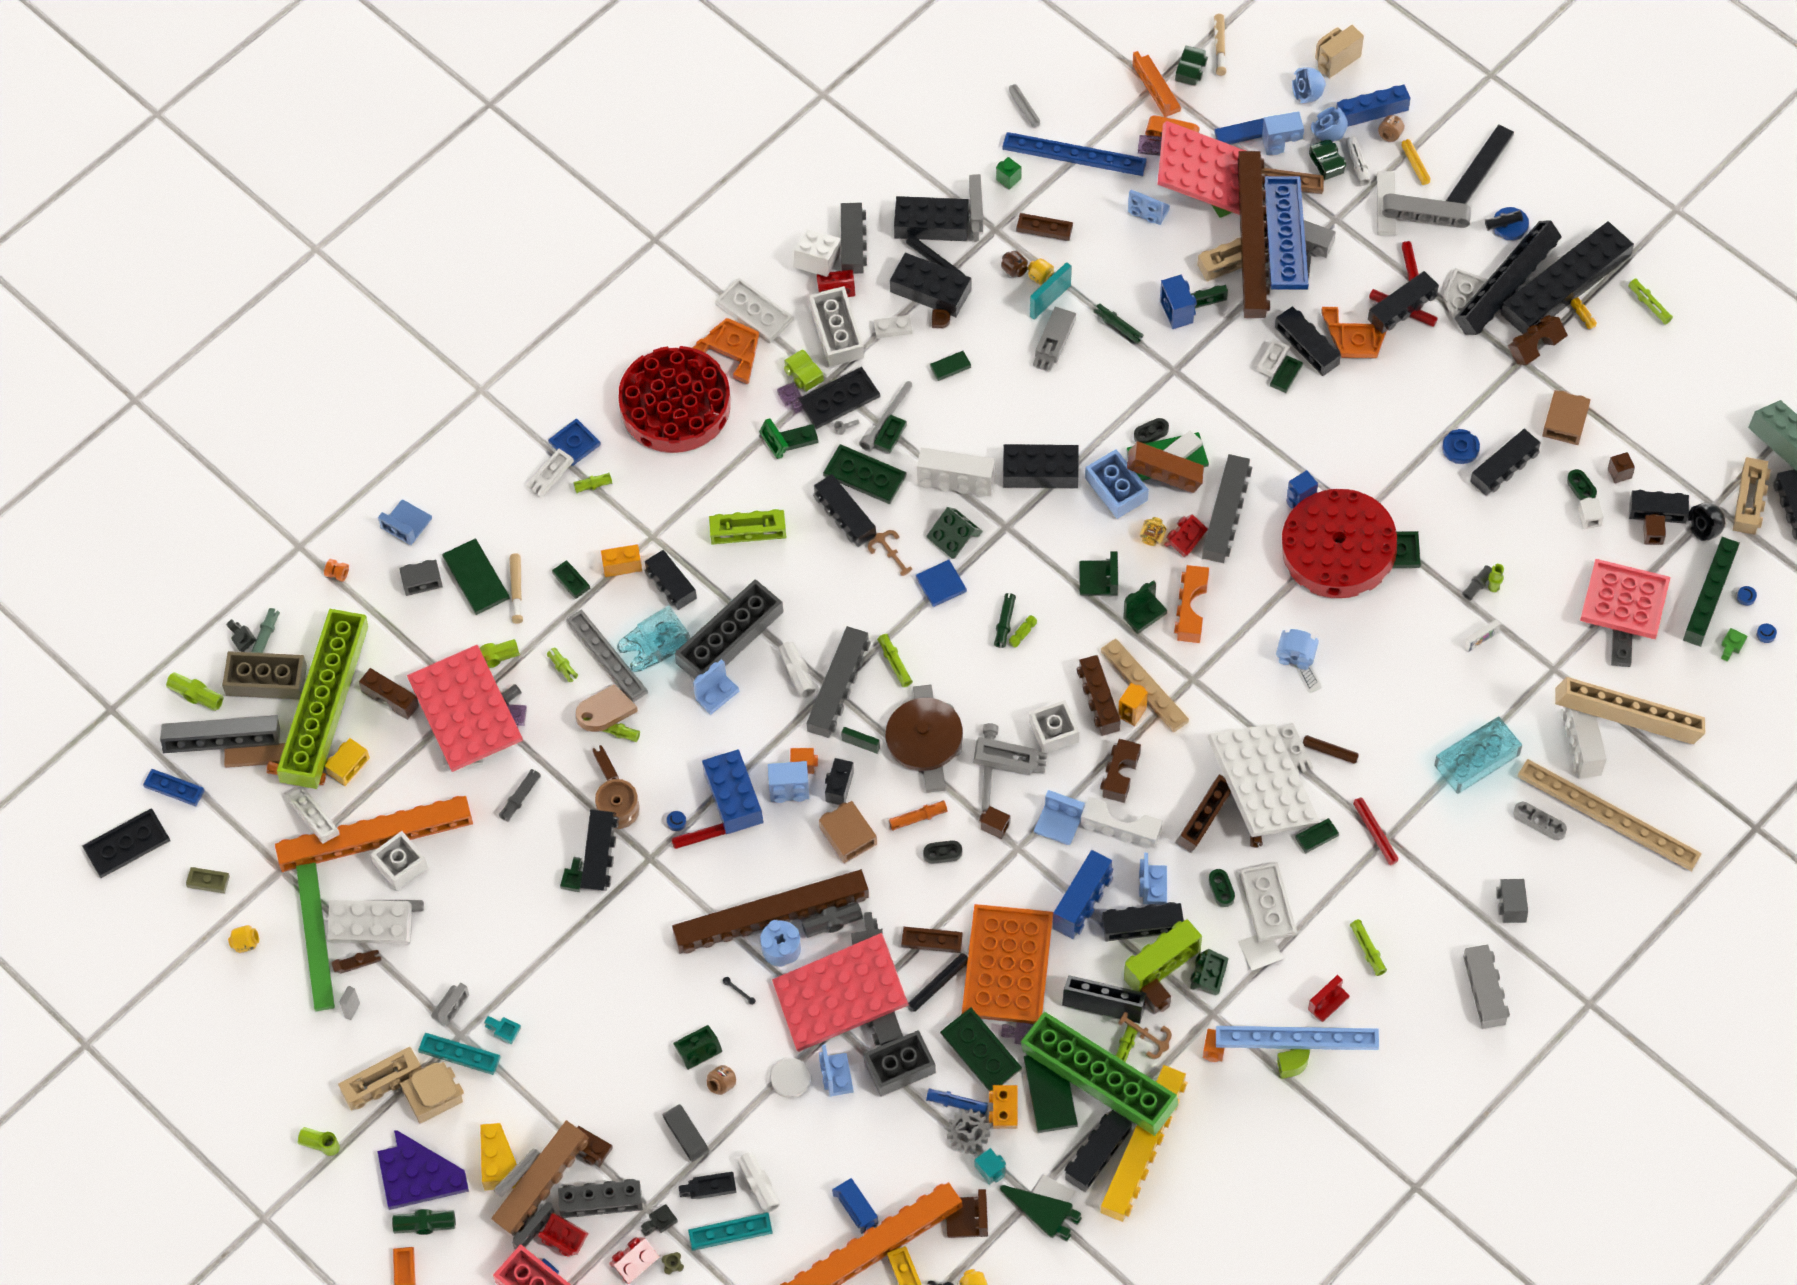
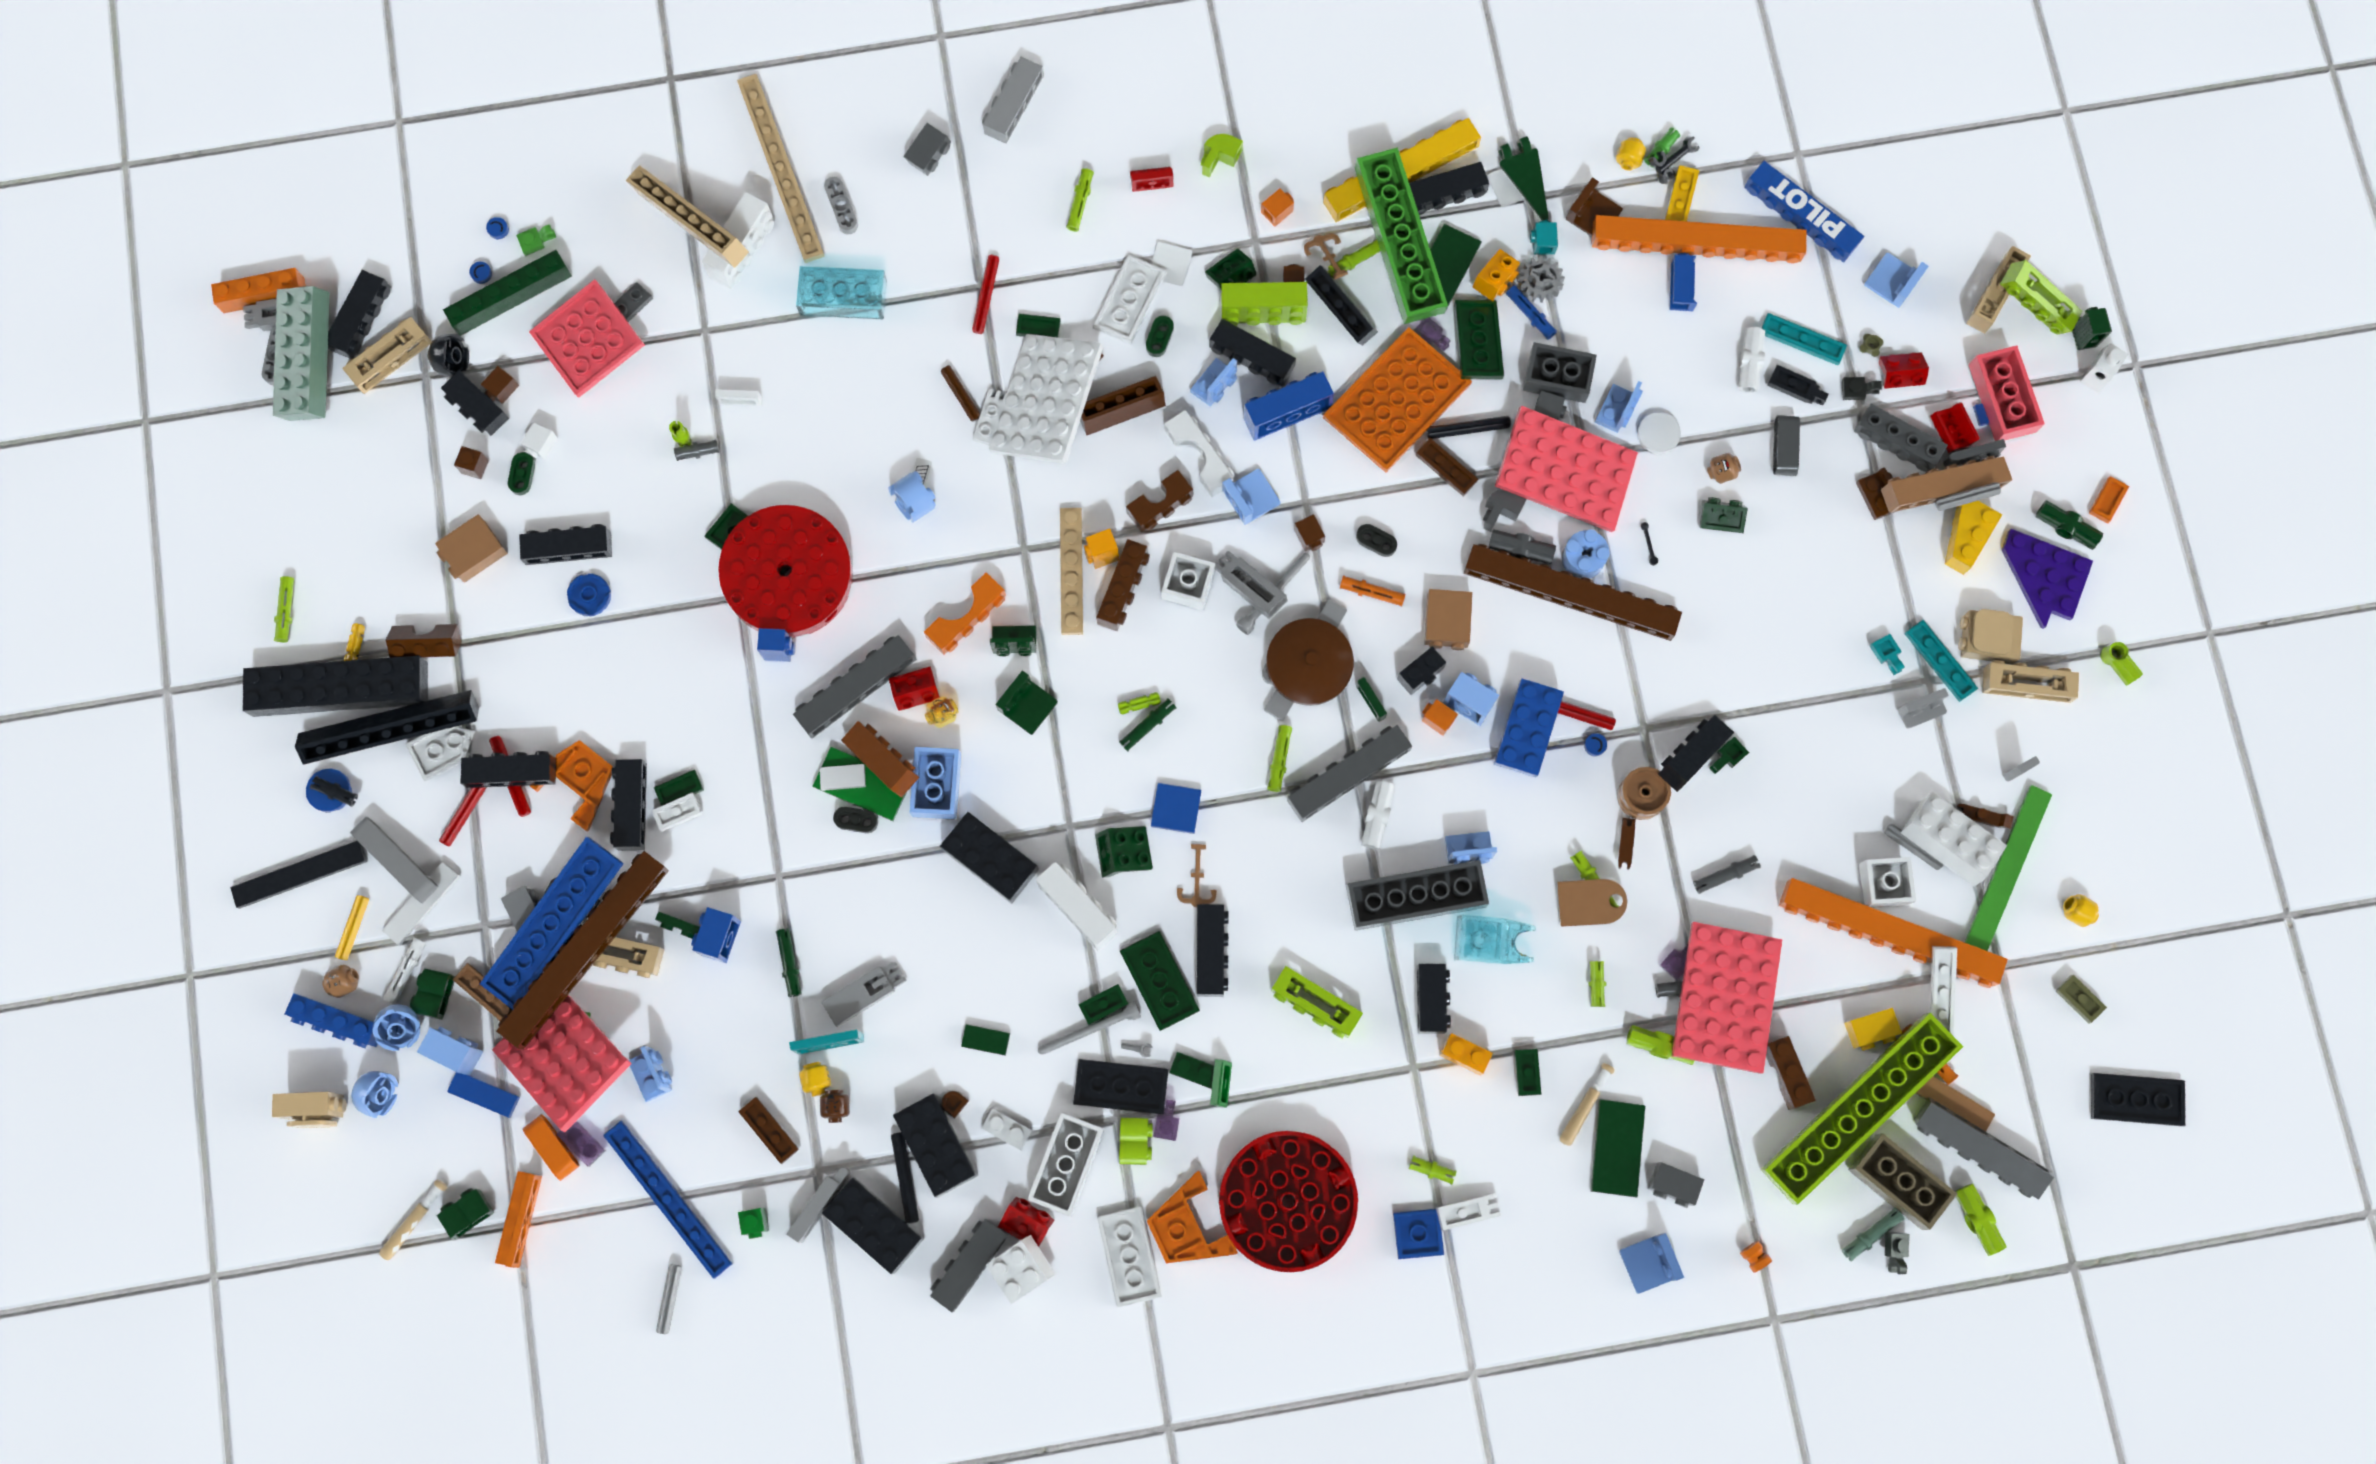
camera: 145 degrees left, 15 degrees up
(173, 787) = (2058, 1128): blue tile -> none
(607, 656) = (1546, 965): light grey tile -> none
(1297, 1038) = (1210, 152): light blue plate -> none

